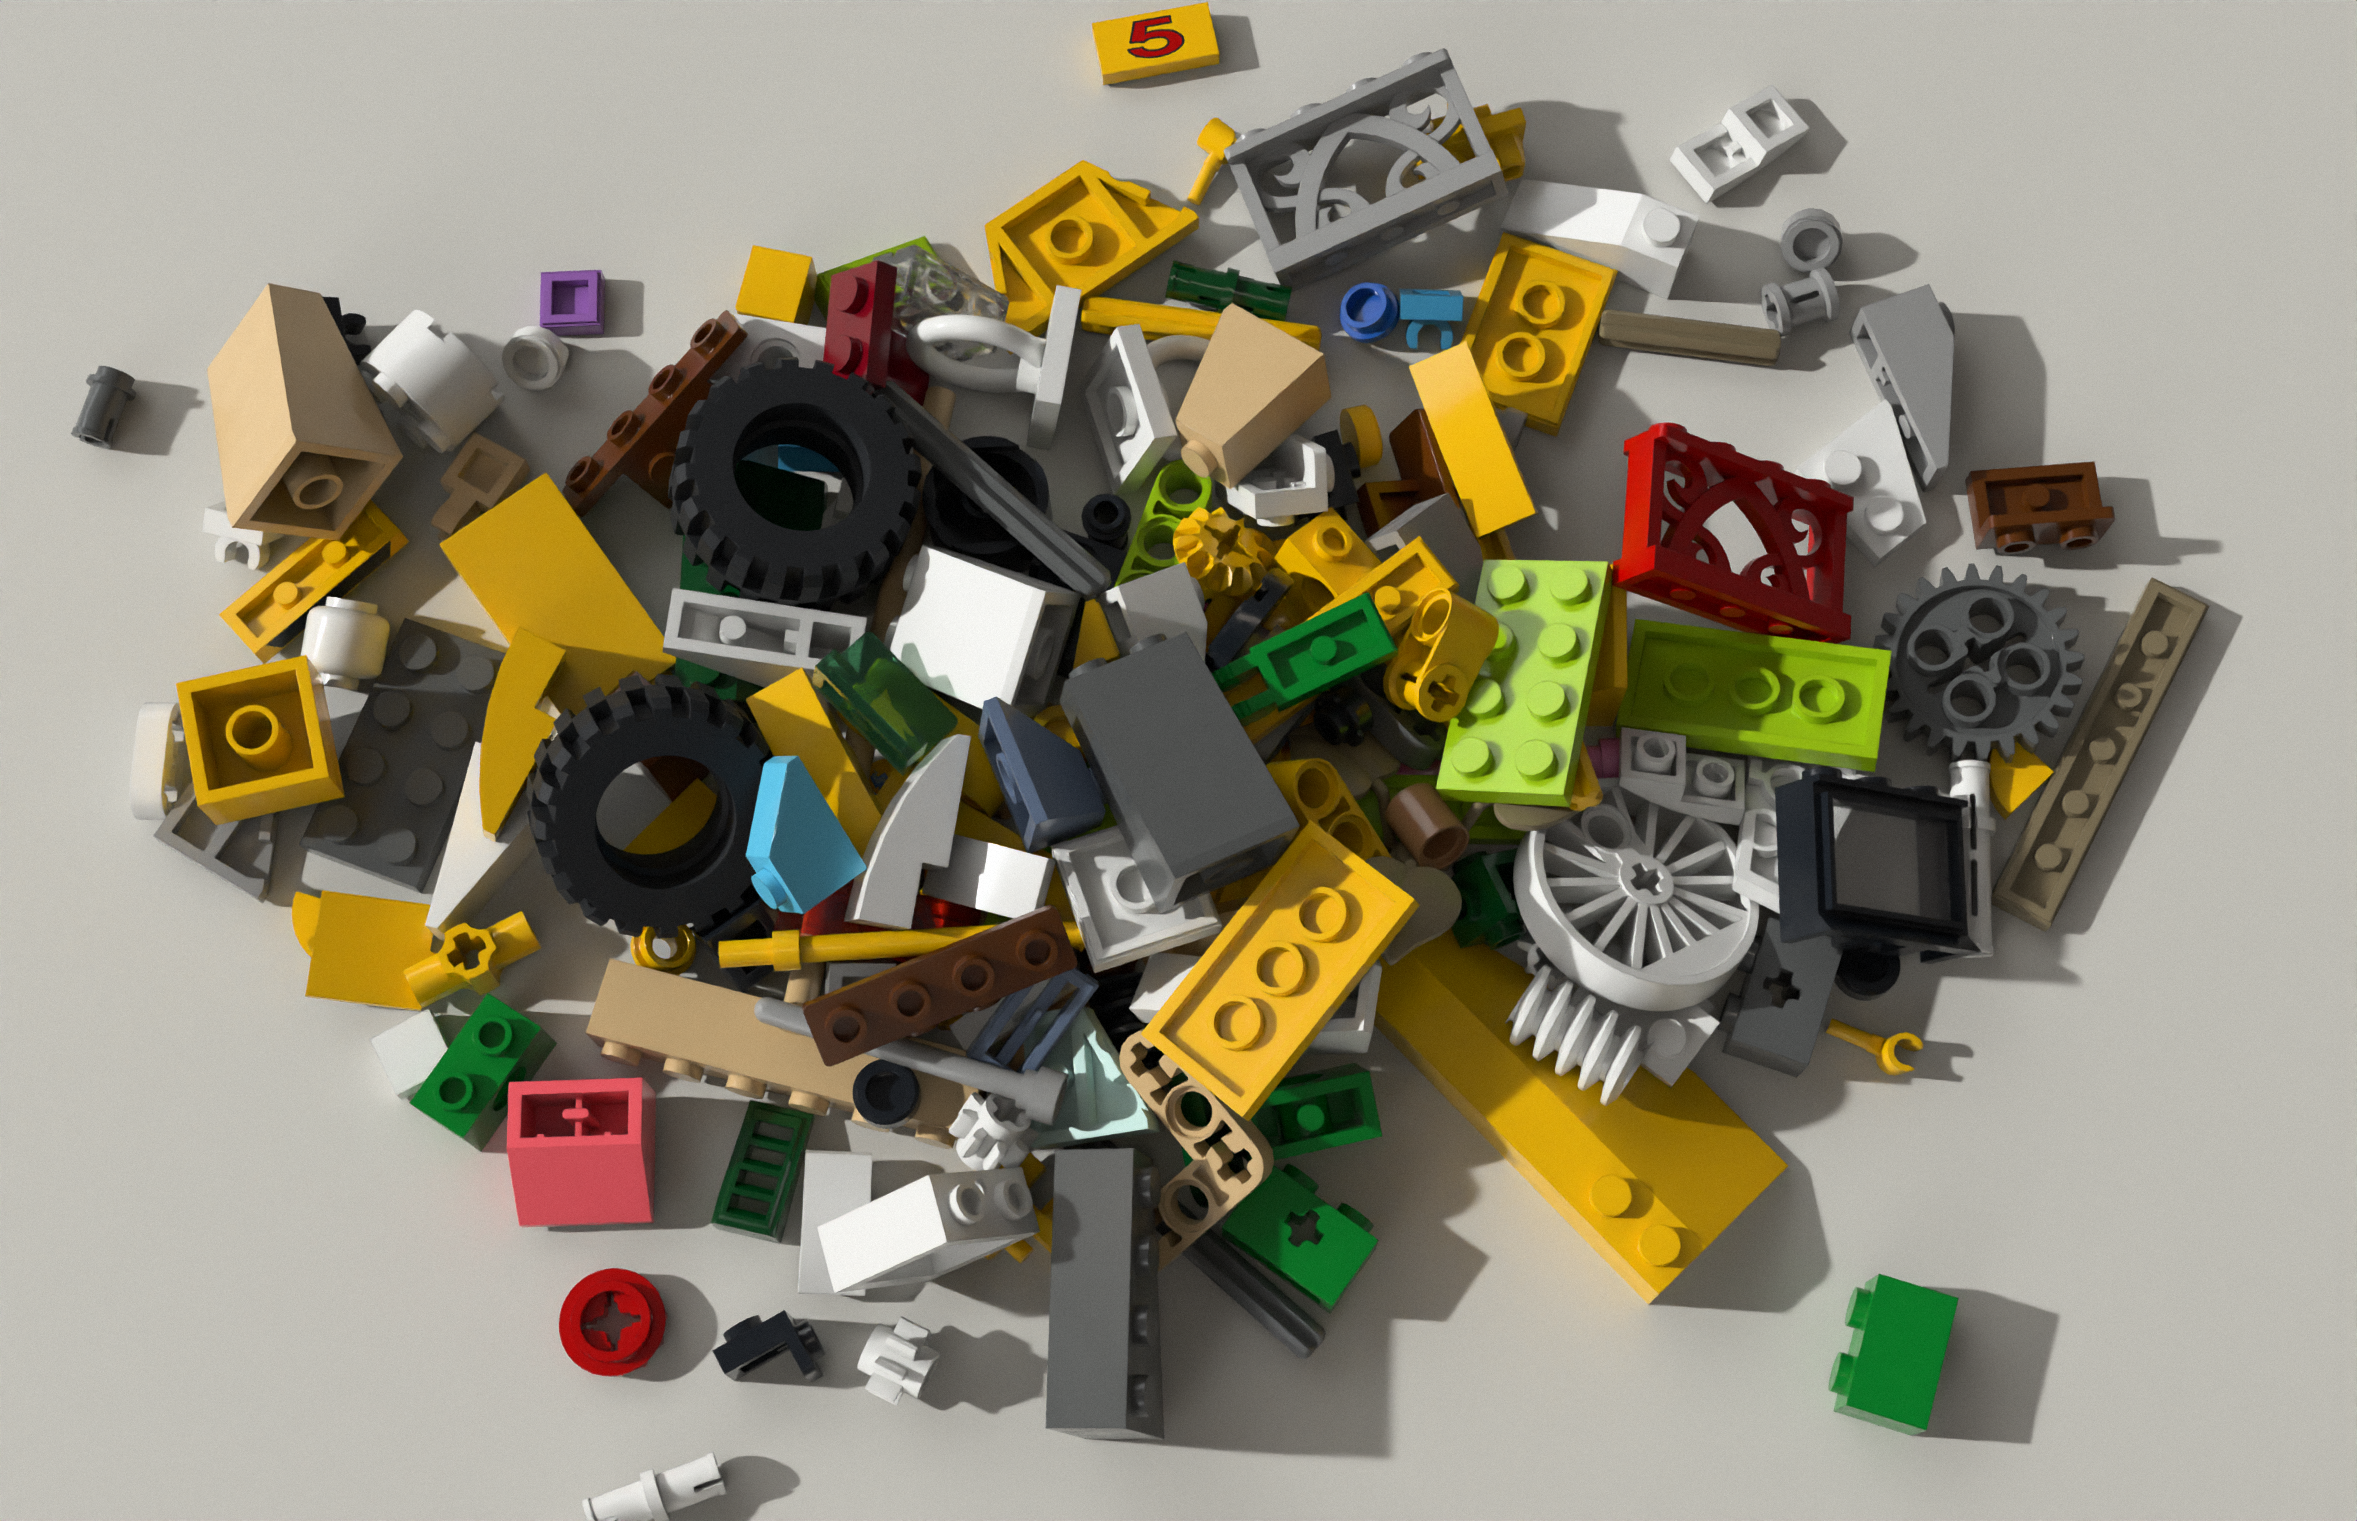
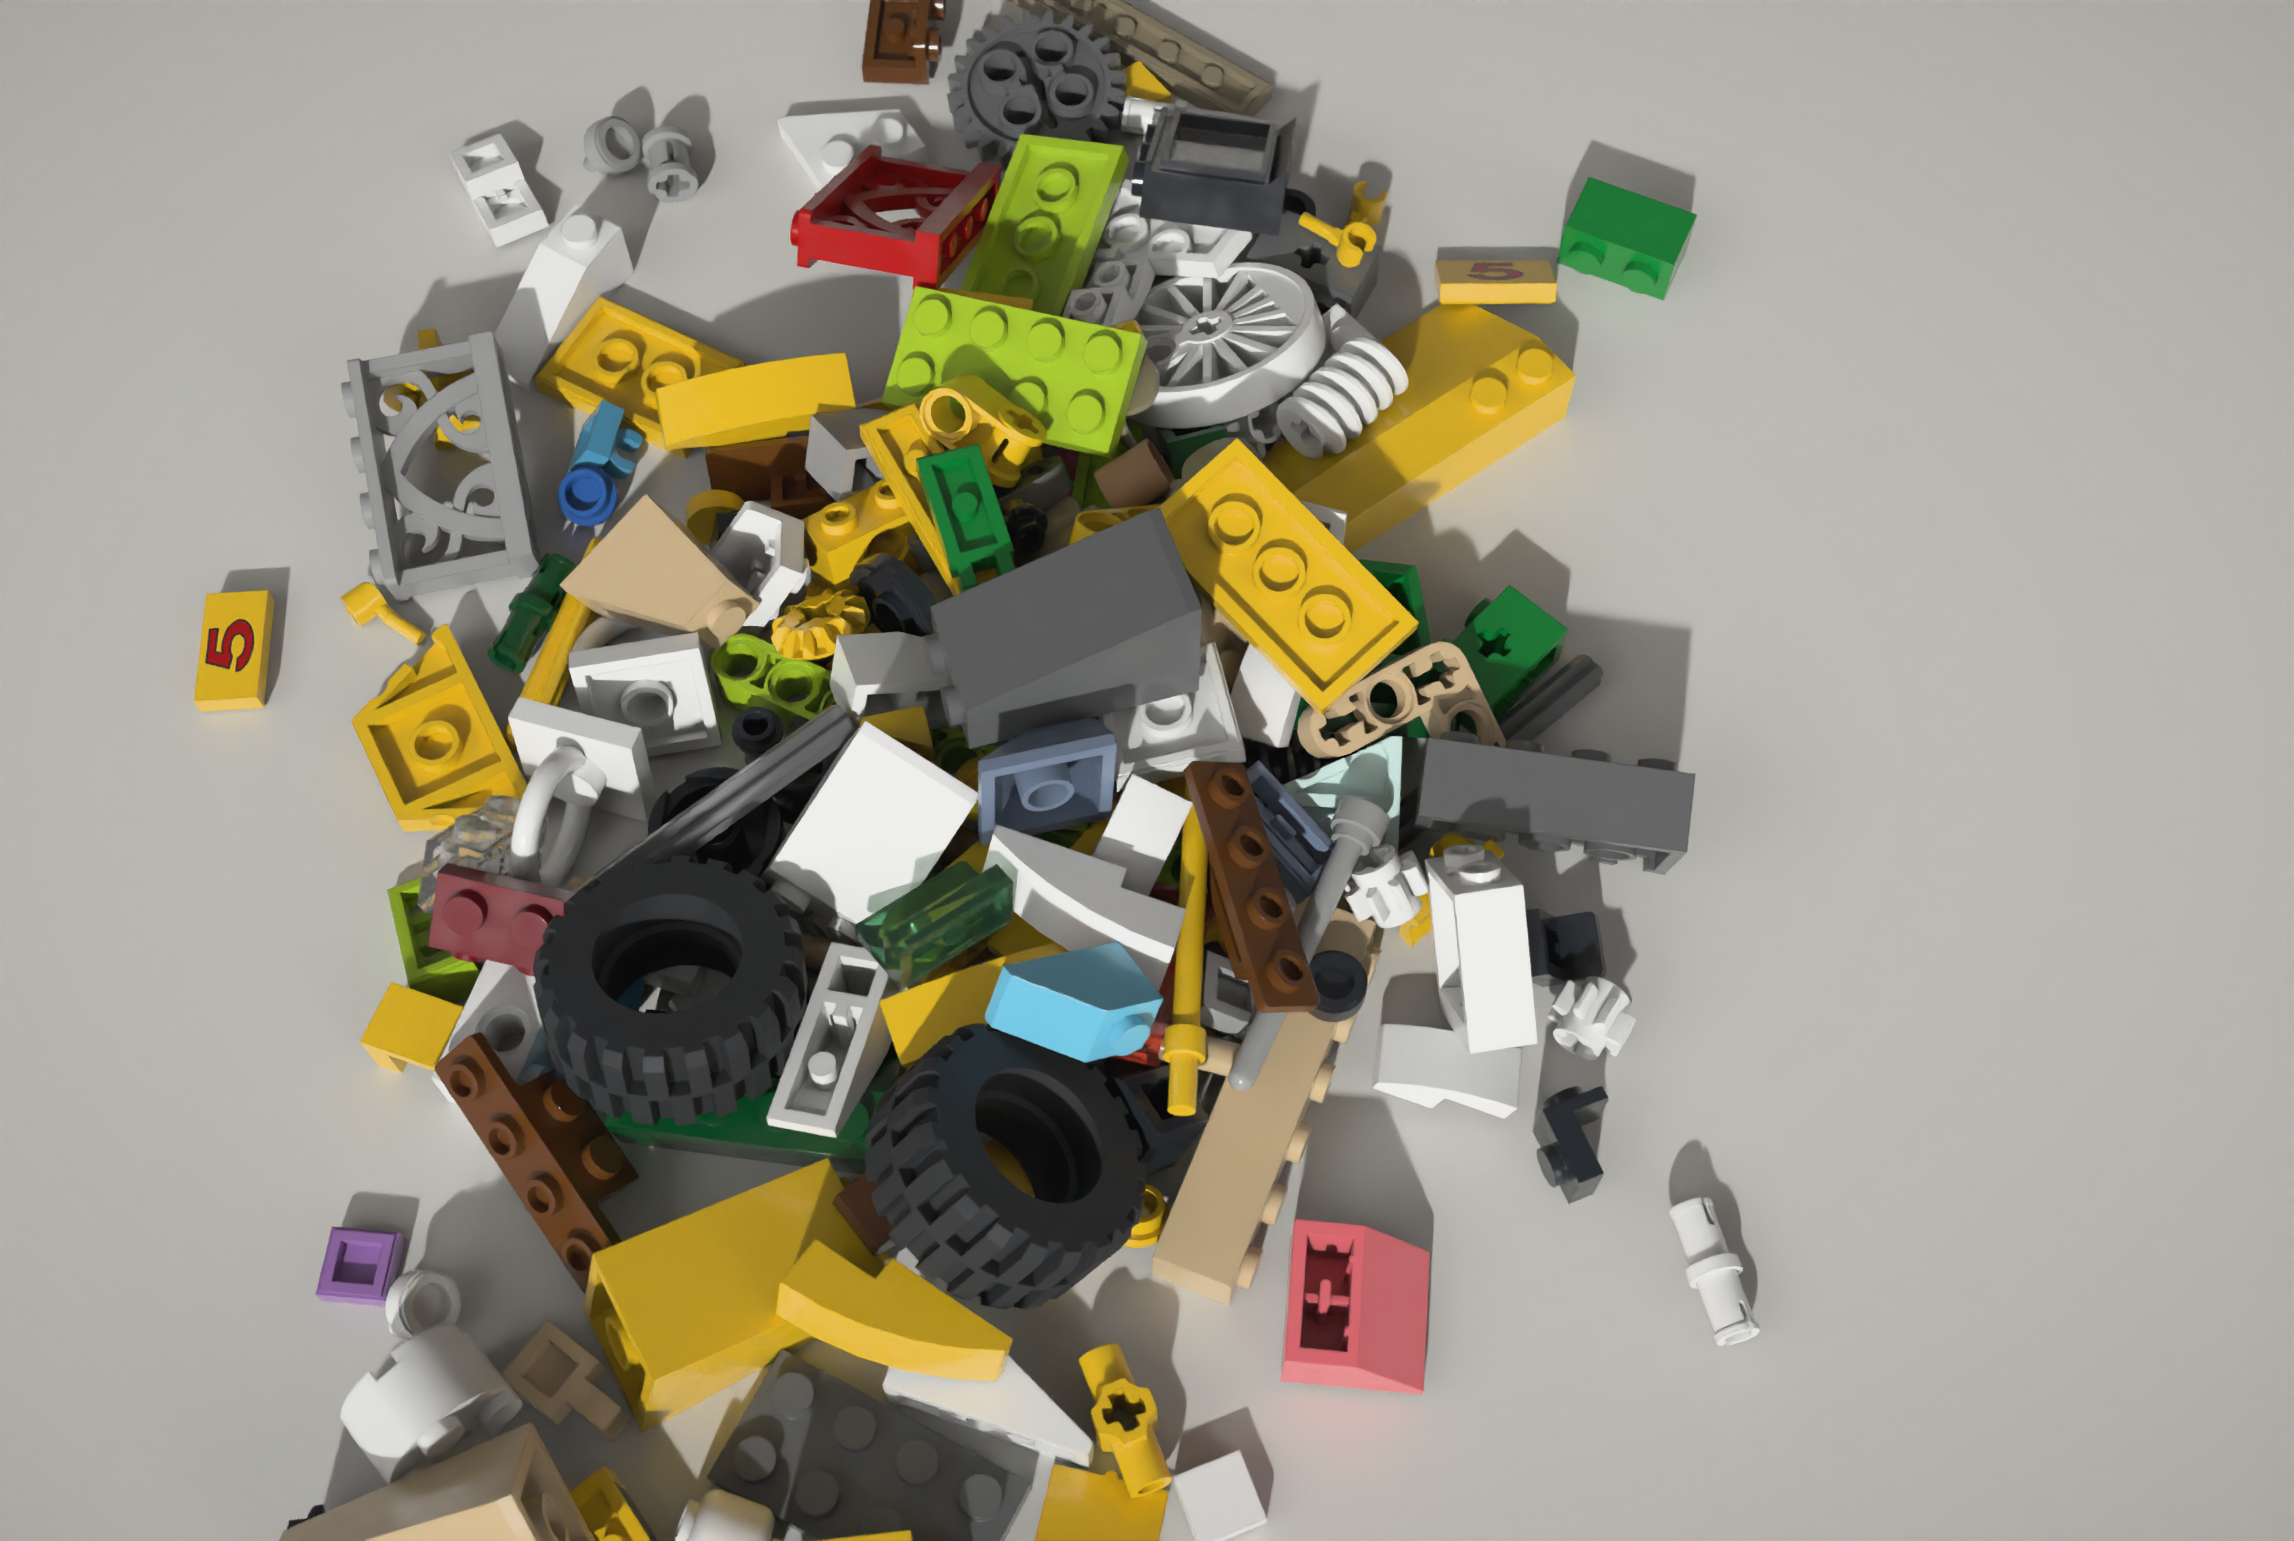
camera: 85 degrees left, 10 degrees down
(473, 1076) = (1256, 1411): green brick -> none
(590, 1302) = (1553, 1281): red gear -> none
(751, 1224) = (1414, 1121): dark green slope -> none
(971, 1317) = (1564, 947): none -> black bracket
(1689, 337) = (680, 253): dark tan axle -> none
(1807, 1008) = (1345, 241): none -> yellow hand
(1808, 1206) = (1495, 281): none -> yellow tile
(1910, 362) = (747, 90): light grey slope -> none

